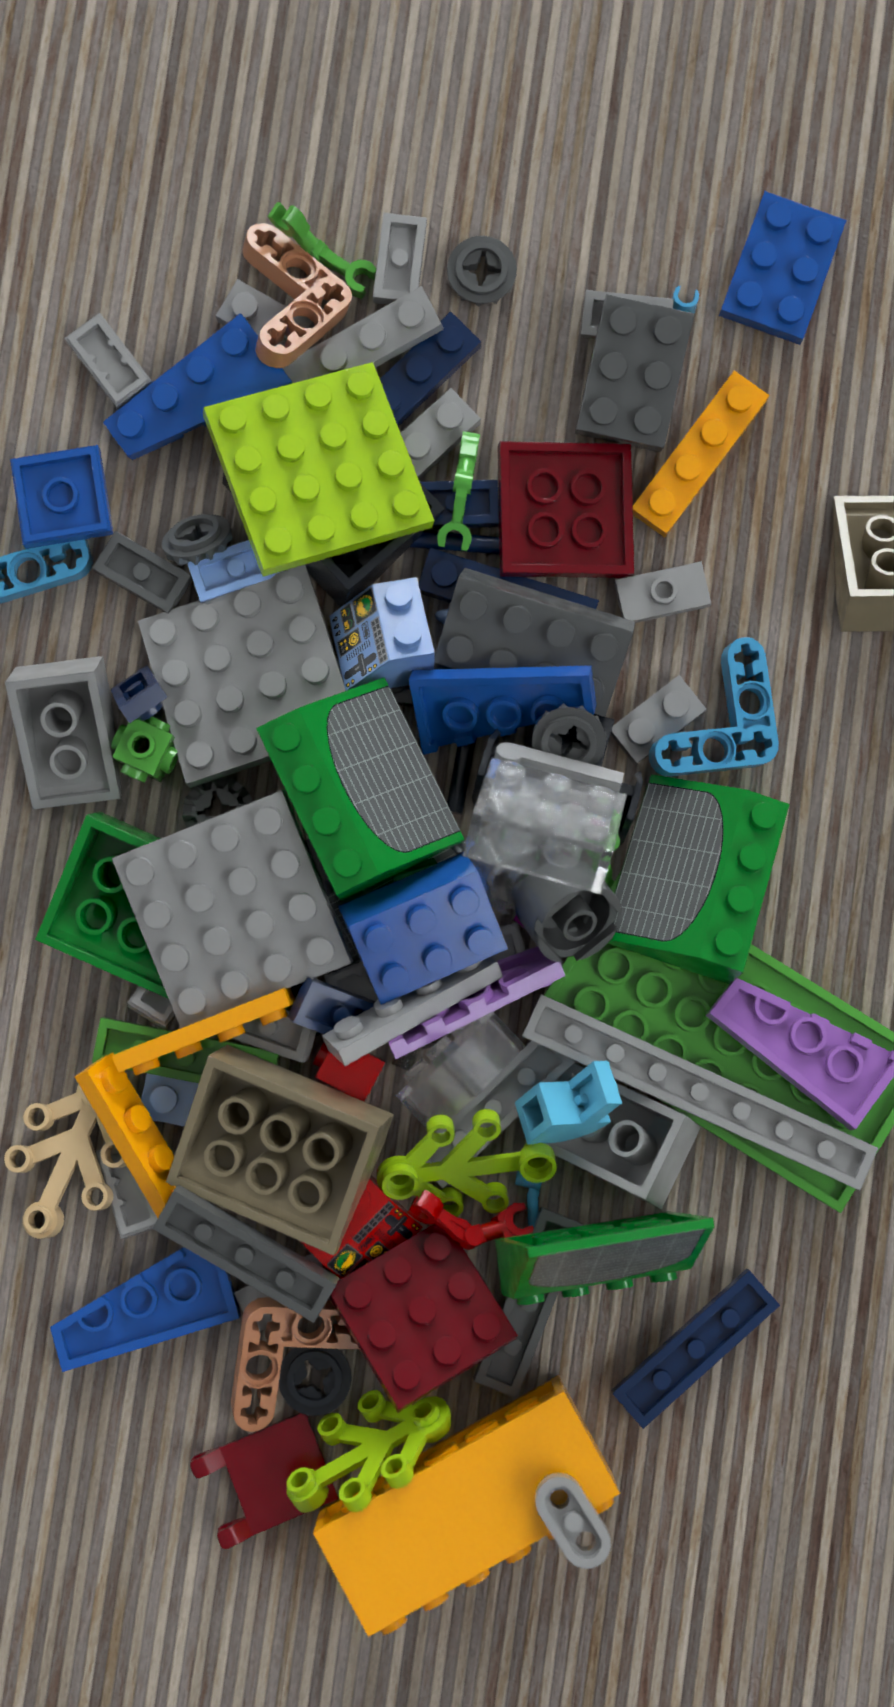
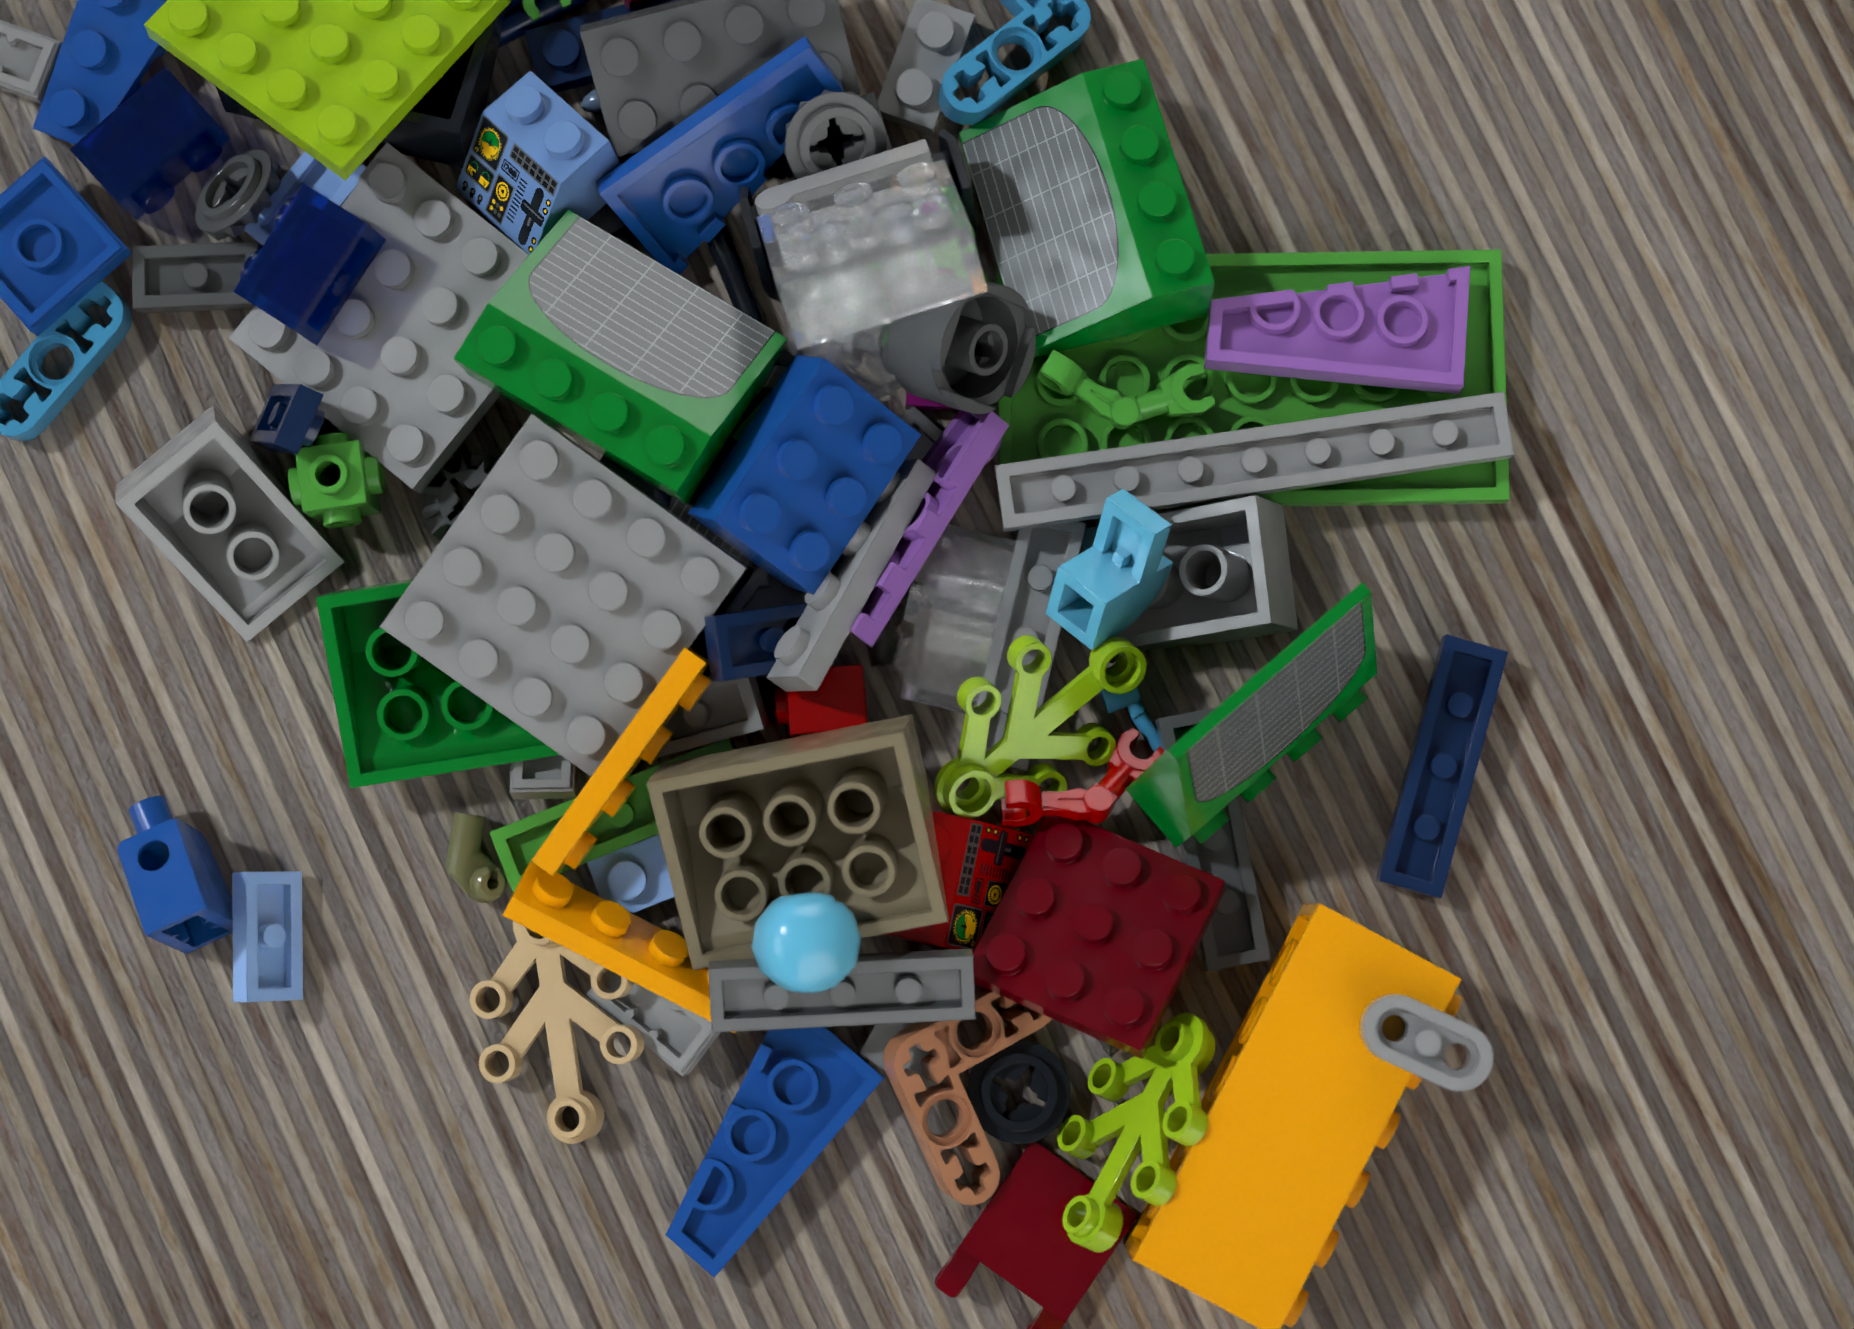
camera: 30 degrees left, 0 degrees up
(77, 1027) = (469, 864): none -> olive arm
(165, 477) = (151, 145): none -> clear blue brick
(209, 611) = (309, 264): none -> clear blue brick
(241, 1213) = (806, 942): none -> medium azure hair
(638, 1009) = (1068, 379): none -> bright green piece

